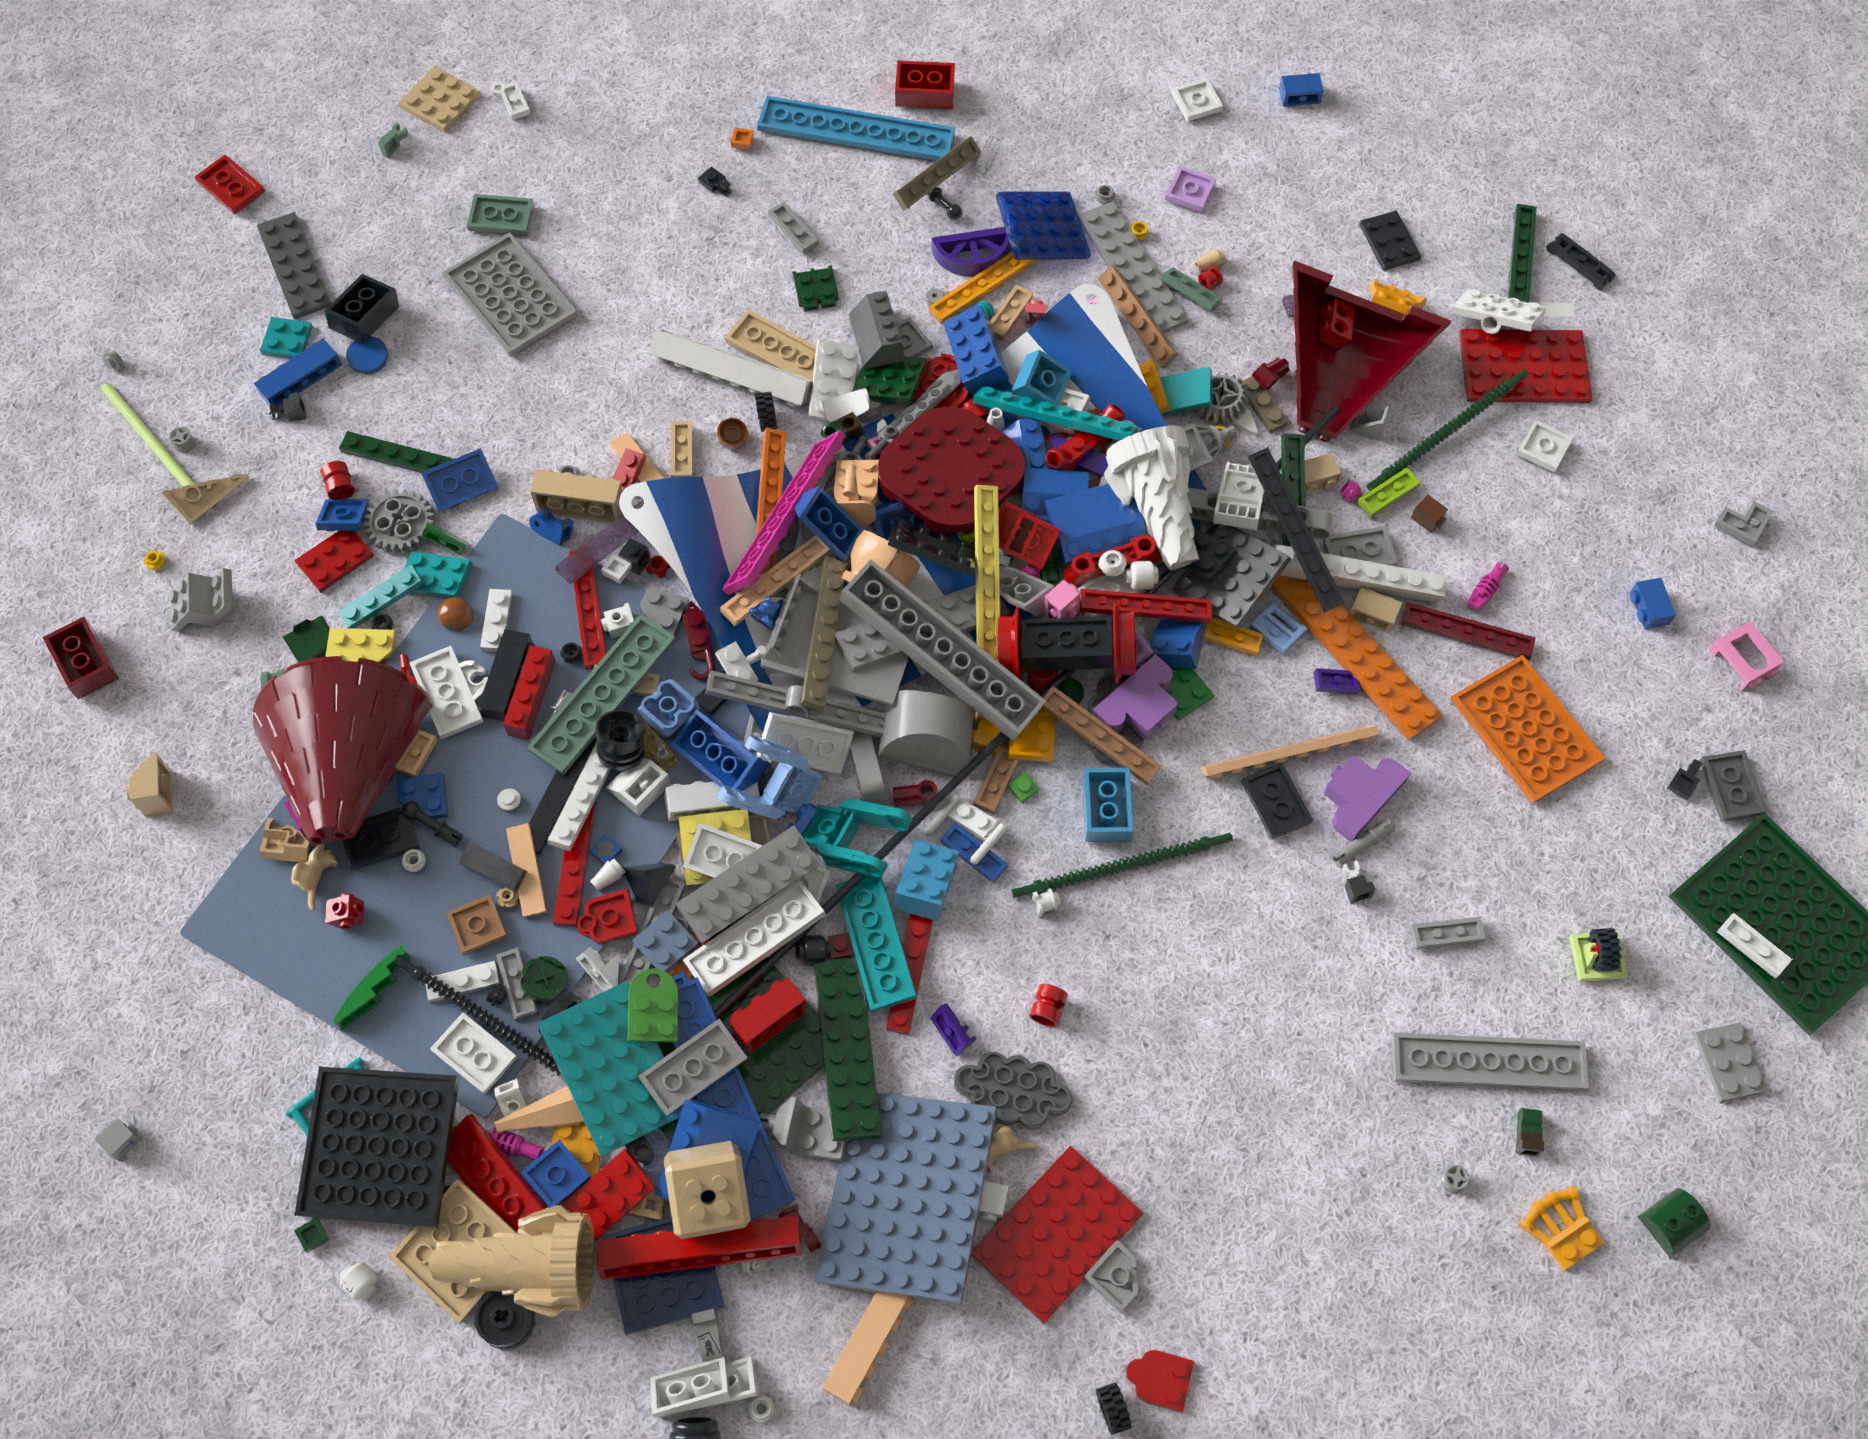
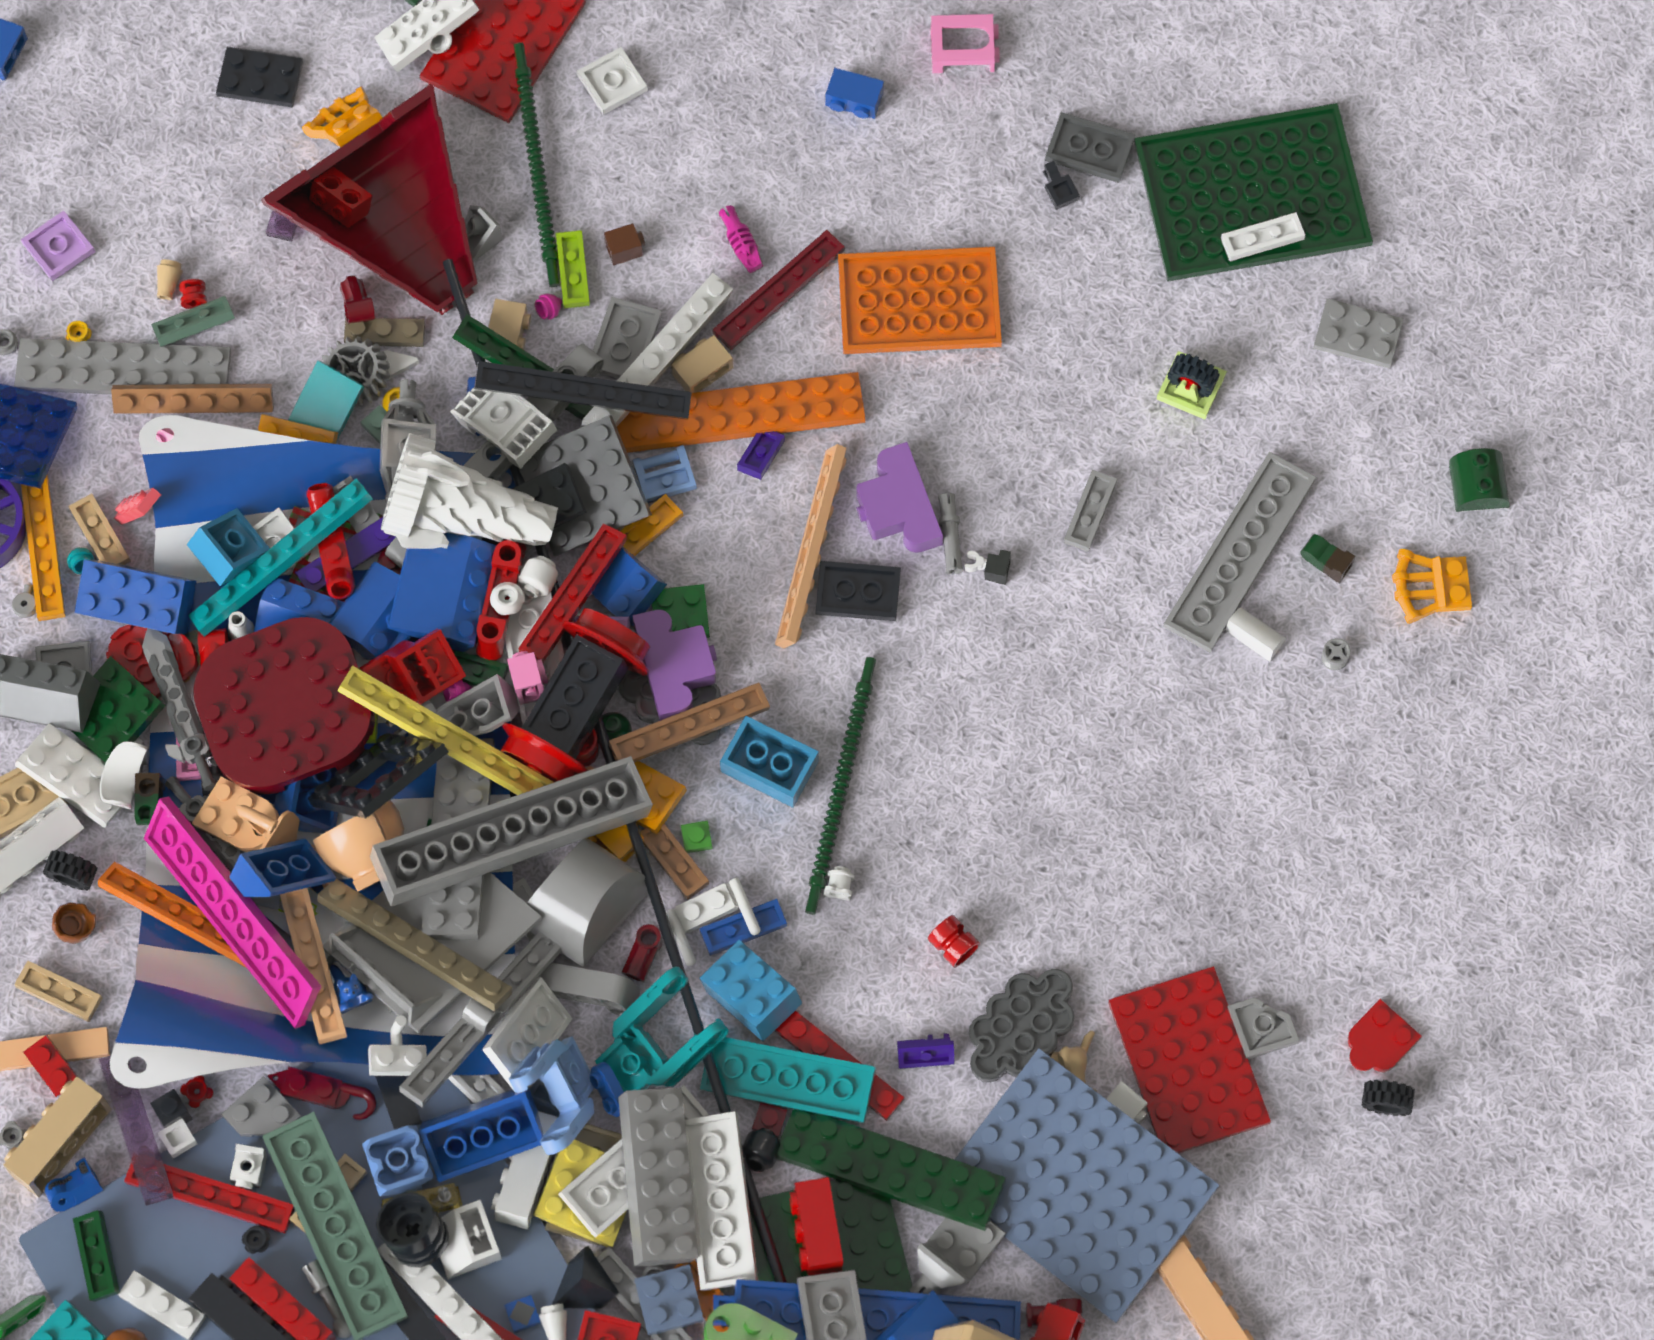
camera: 60 degrees left, 5 degrees up
(509, 562) = (96, 1255): none -> dark green plate
(1431, 1107) = (1255, 633): none -> white brick

